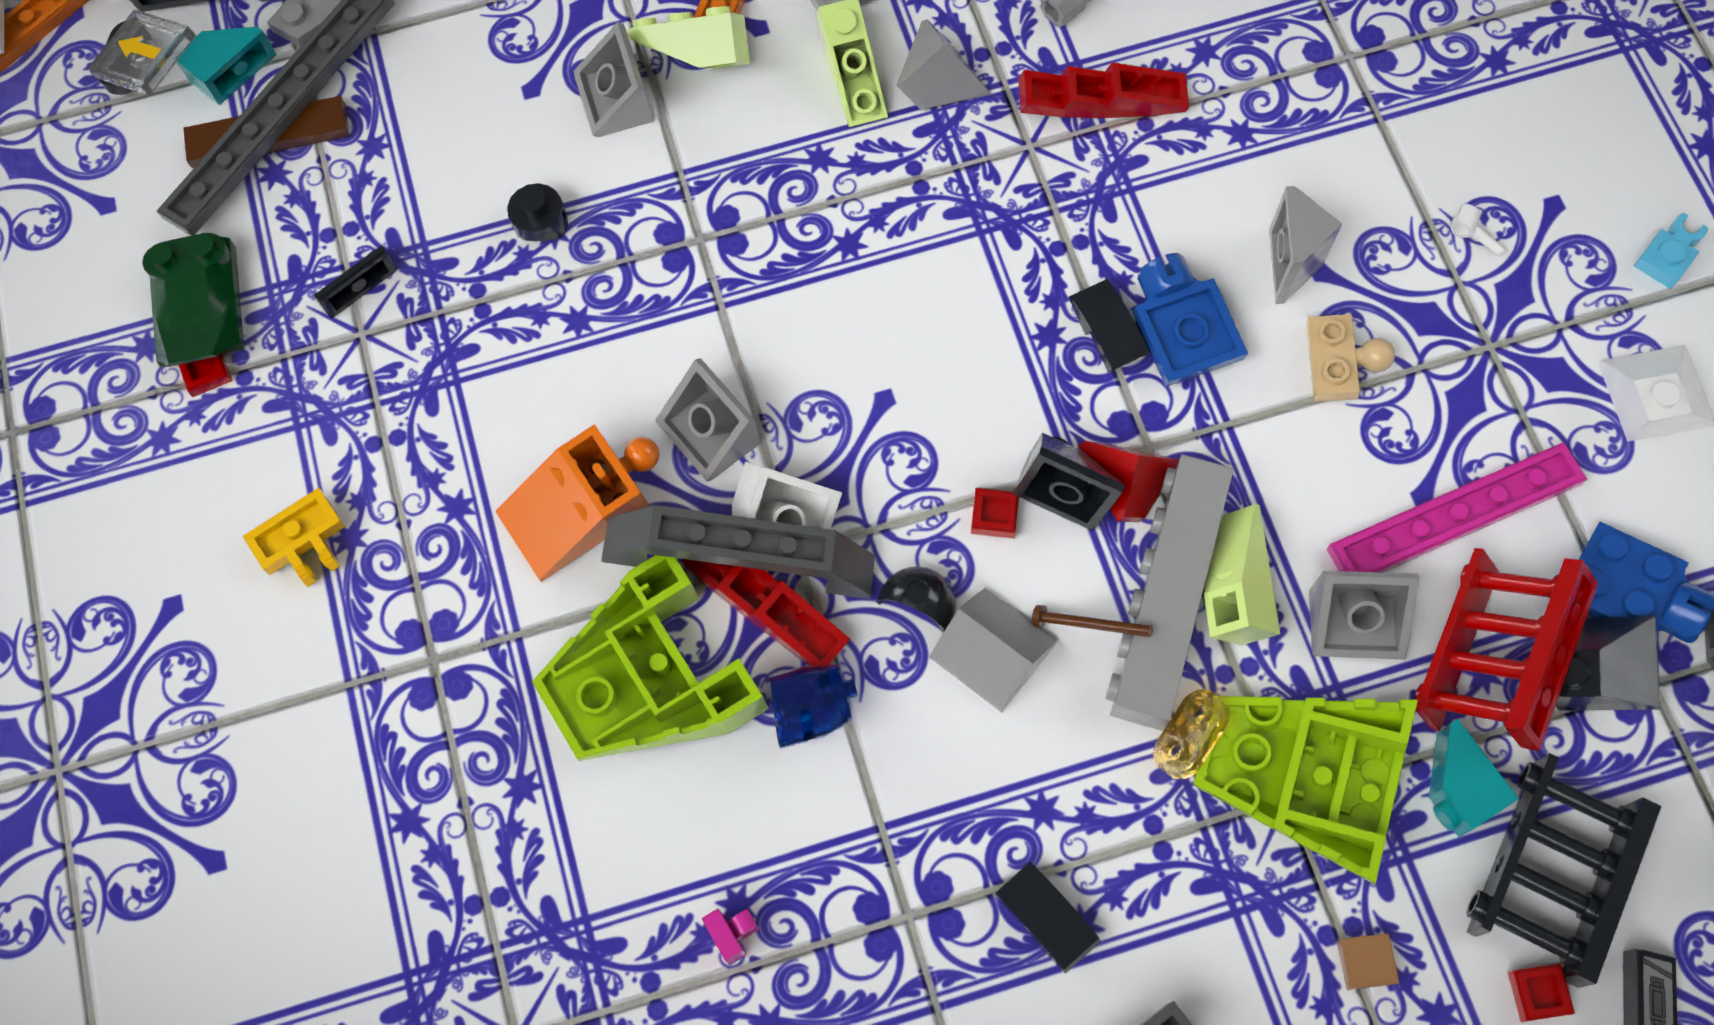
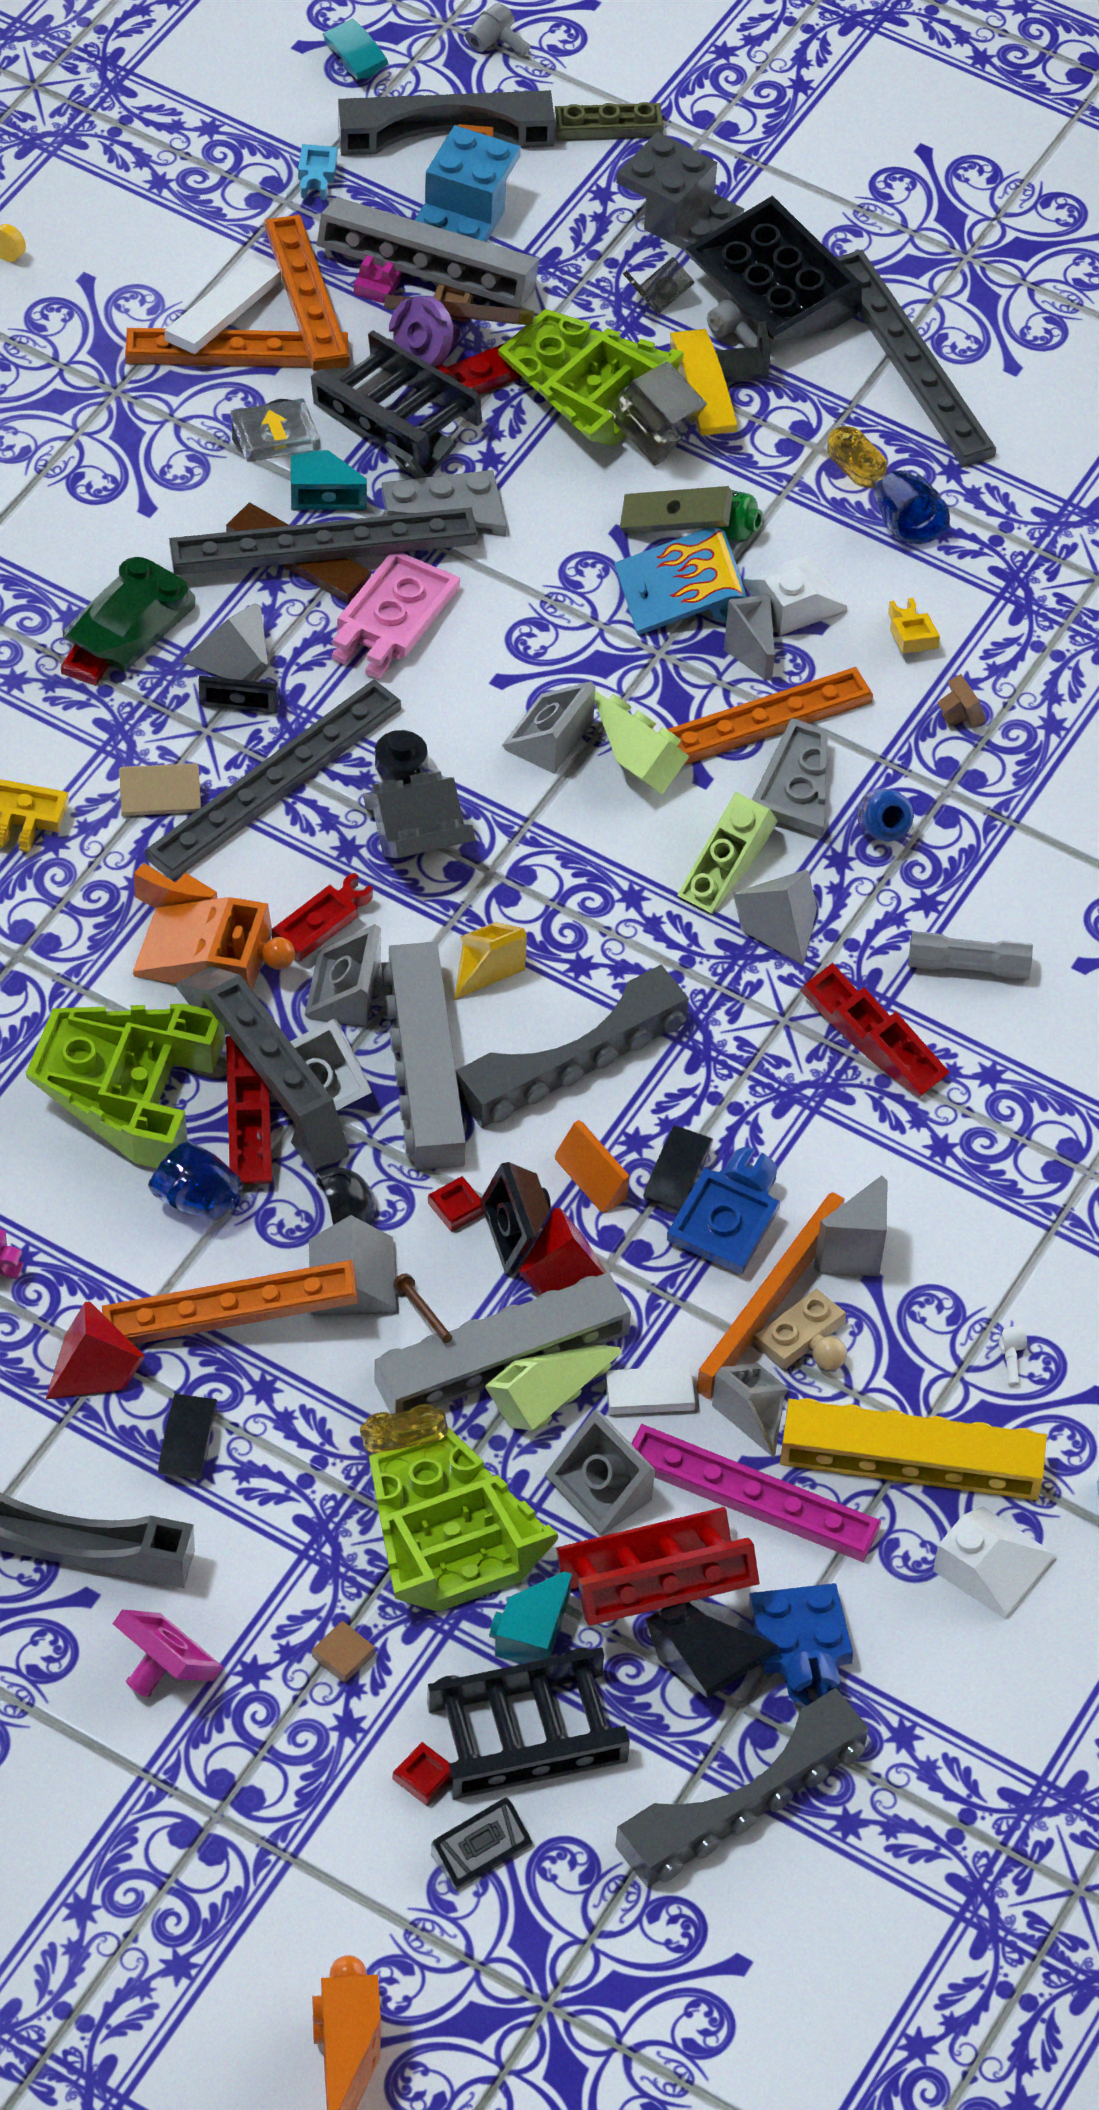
camera: 40 degrees right, 15 degrees down
(309, 249) = (234, 648): none -> light grey slope
(385, 415) = (159, 789): none -> tan slope
(392, 109) = (393, 611): none -> bright pink tile
(459, 327) = (272, 780): none -> dark grey tile
(490, 494) = (161, 891): none -> orange slope
(611, 244) = (417, 814): none -> dark grey bracket
(629, 393) = (323, 916): none -> red plate
(781, 298) = (490, 956): none -> yellow slope
(838, 423) = (425, 1056): none -> light grey brick
(898, 933) = (93, 1357): none -> red slope
(916, 385) = (506, 1082): none -> dark grey arch
(953, 777) = (235, 1303): none -> orange tile
(1055, 385) = (593, 1168): none -> orange slope
(1290, 356) = (766, 1298): none -> orange tile
(1300, 511) = (650, 1390): none -> white tile
(1373, 446) = (751, 1401): none -> light grey slope
(1517, 367) = (913, 1449): none -> yellow brick

